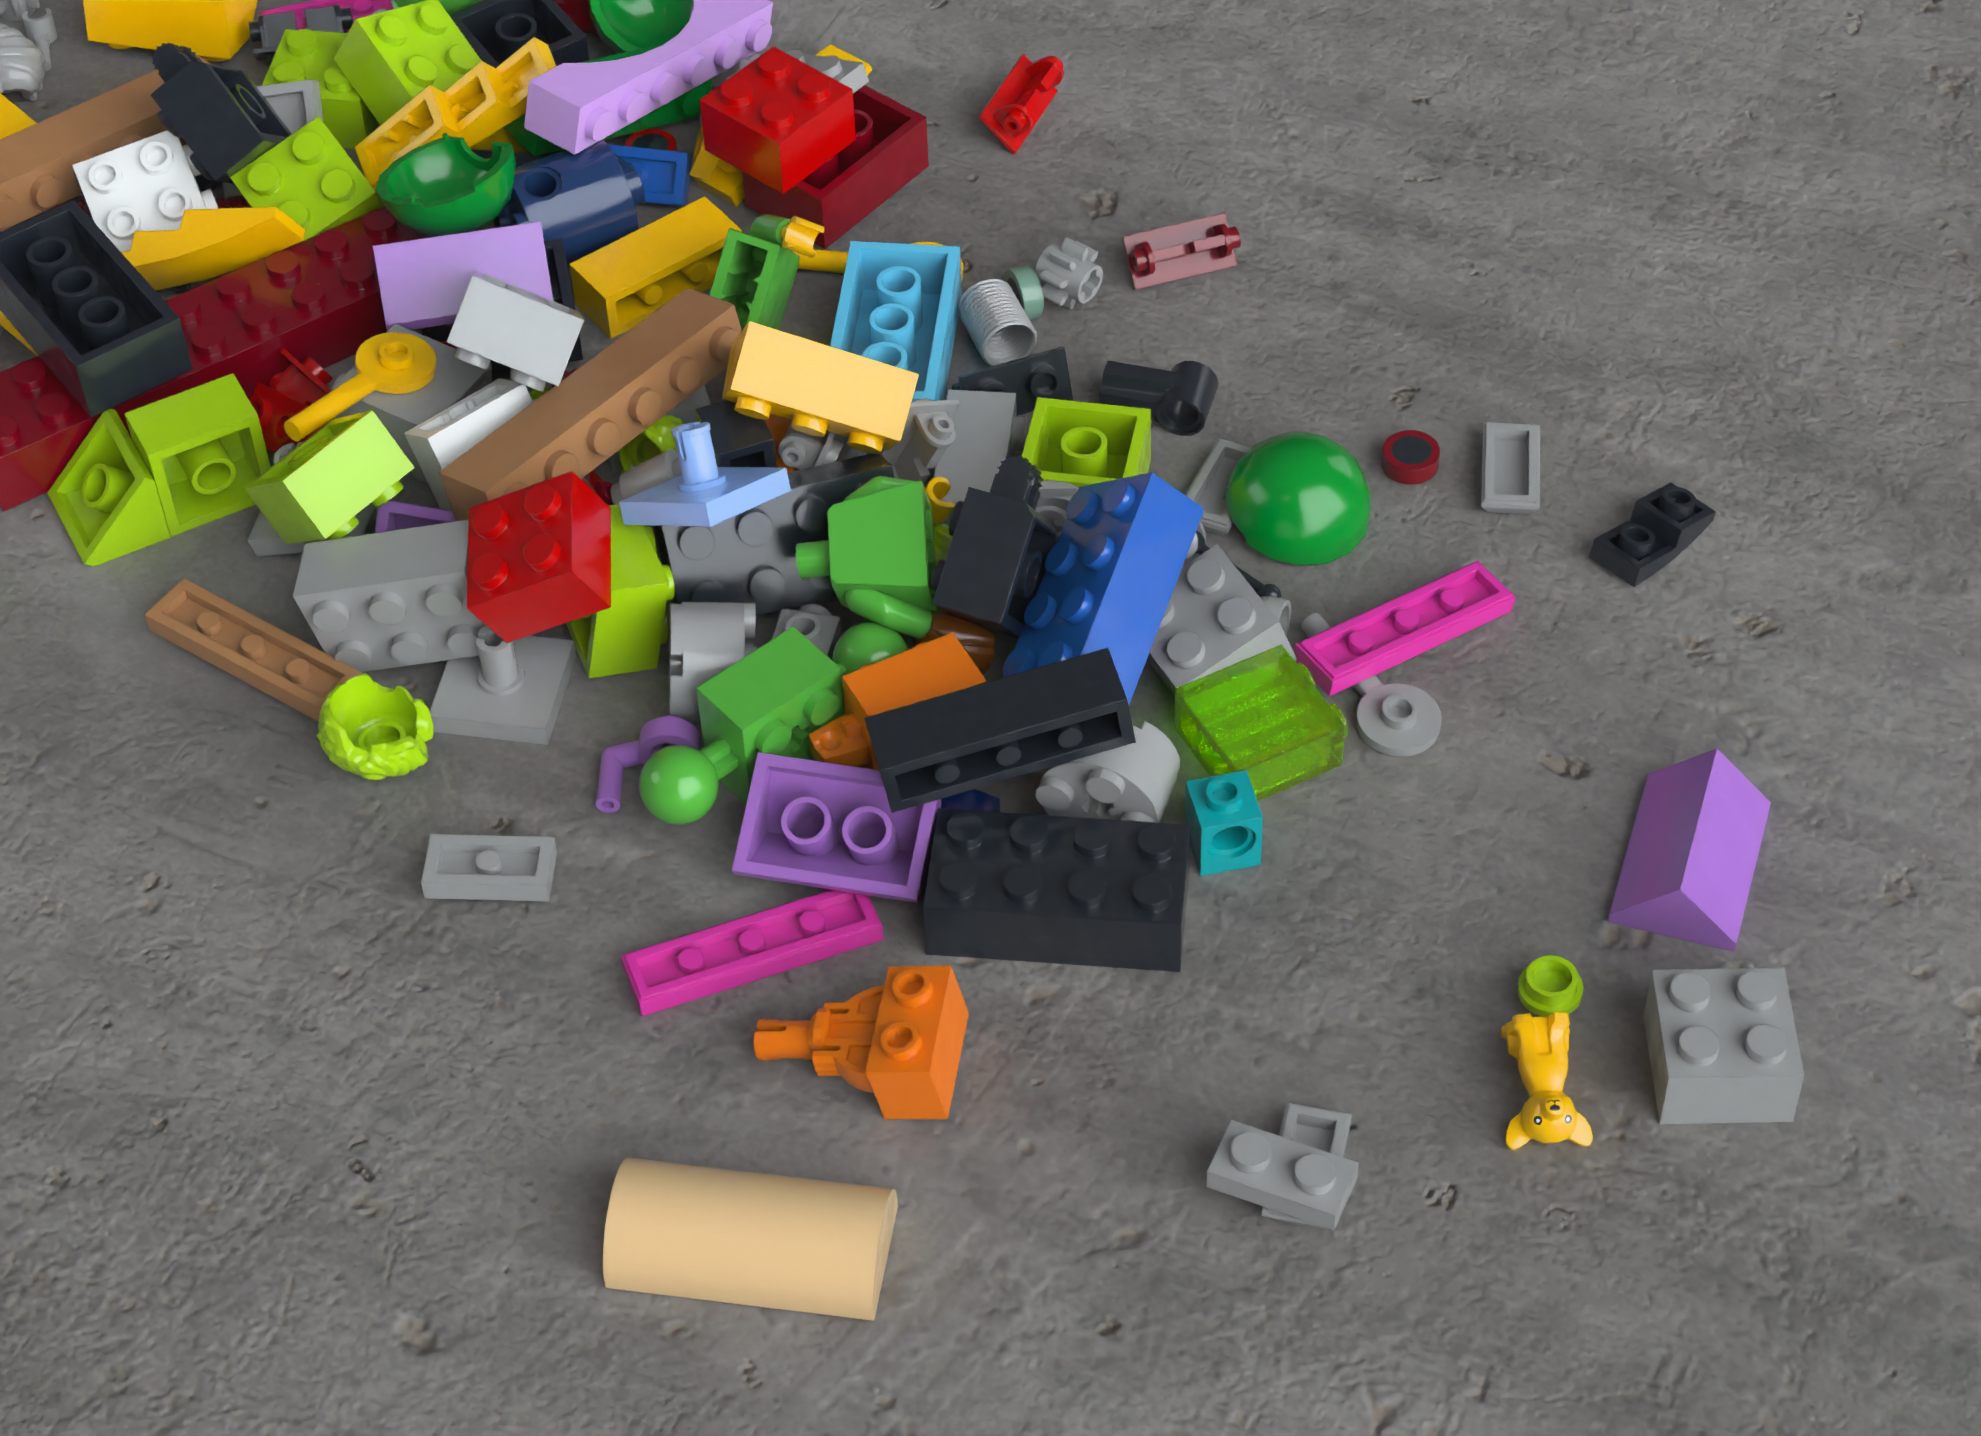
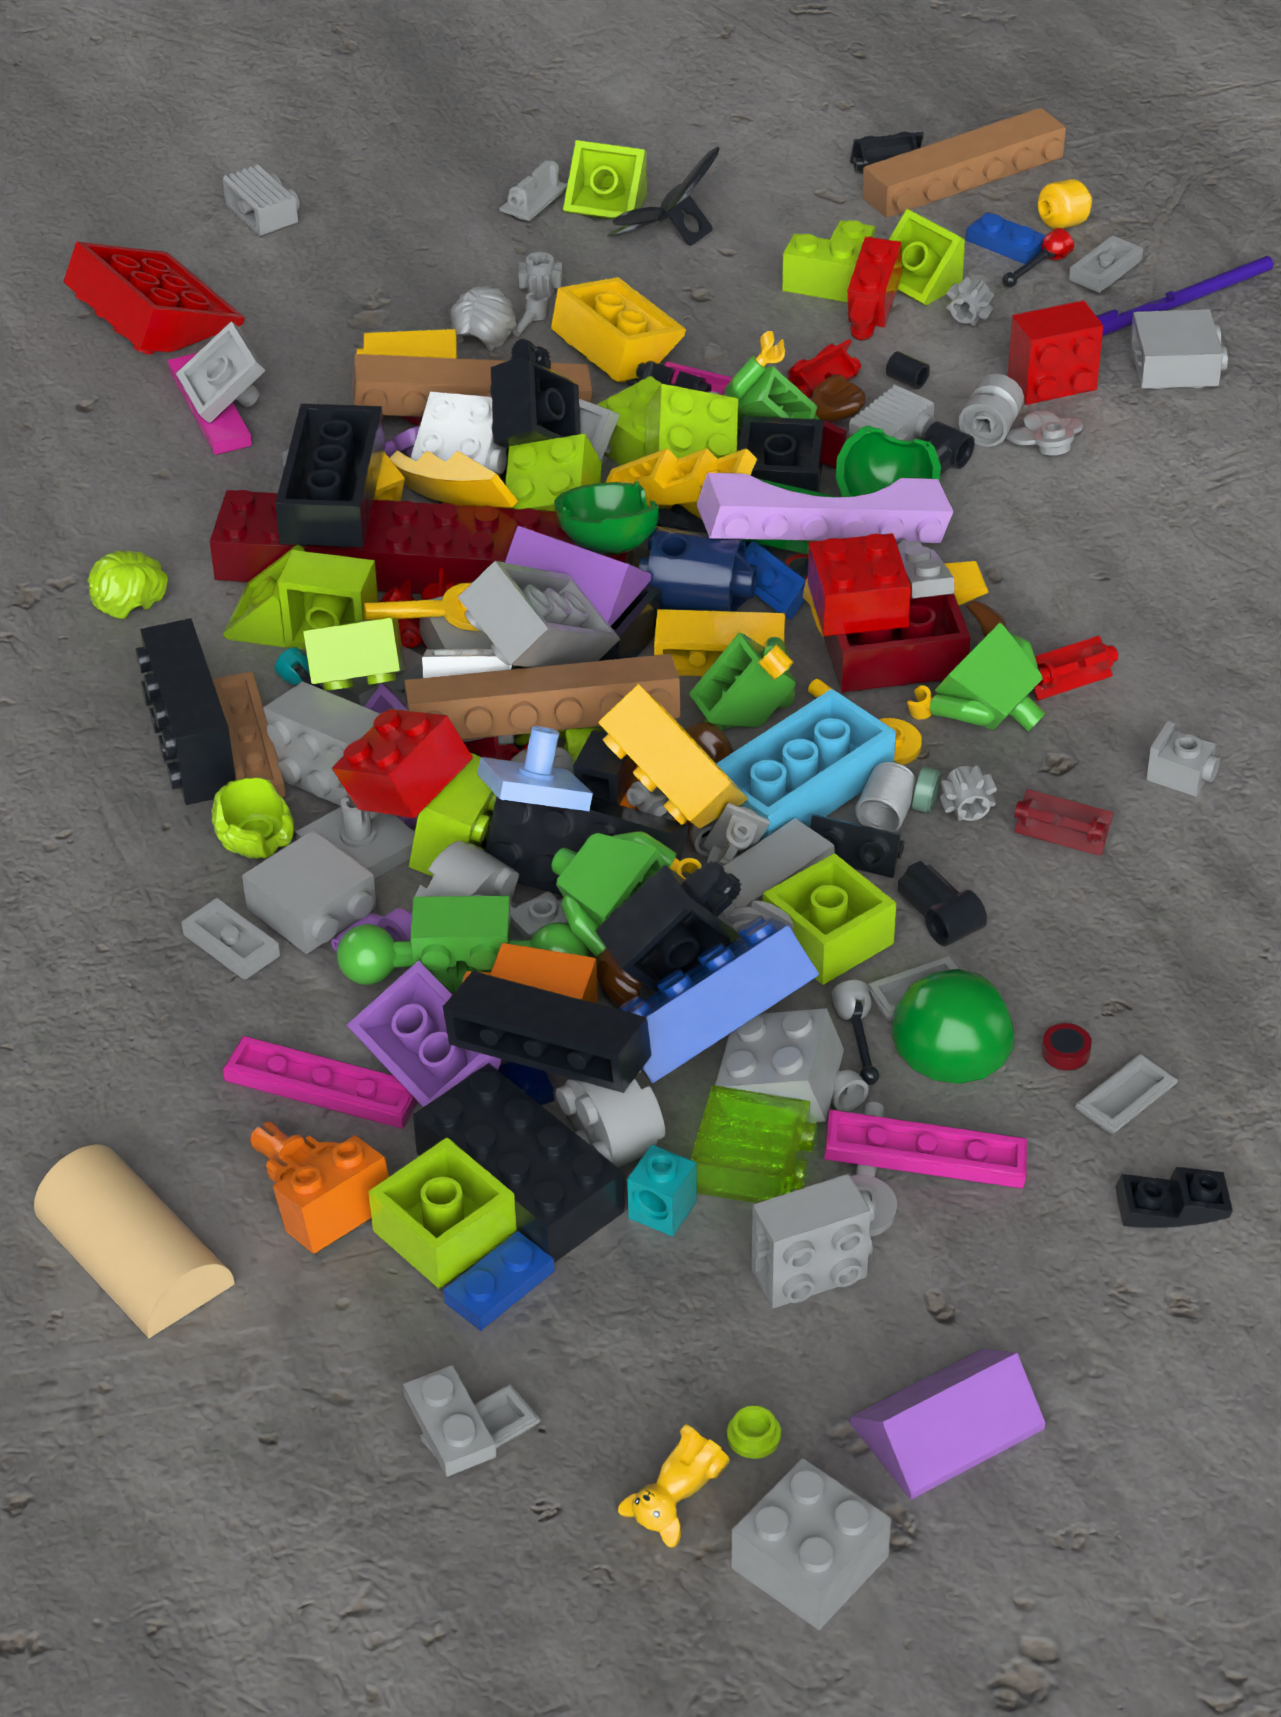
camera: 40 degrees right, 5 degrees down
(174, 658) = (185, 710): none -> black brick
(226, 550) = (293, 667): none -> teal hinge
(531, 764) = (309, 891): none -> light grey brick
(974, 152) = (987, 681): none -> bright green torso
(1049, 984) = (443, 1212): none -> lime brick
(1156, 1017) = (498, 1280): none -> blue plate
(1221, 133) = (1182, 761): none -> light grey brick
(1426, 774) = (811, 1240): none -> light grey brick

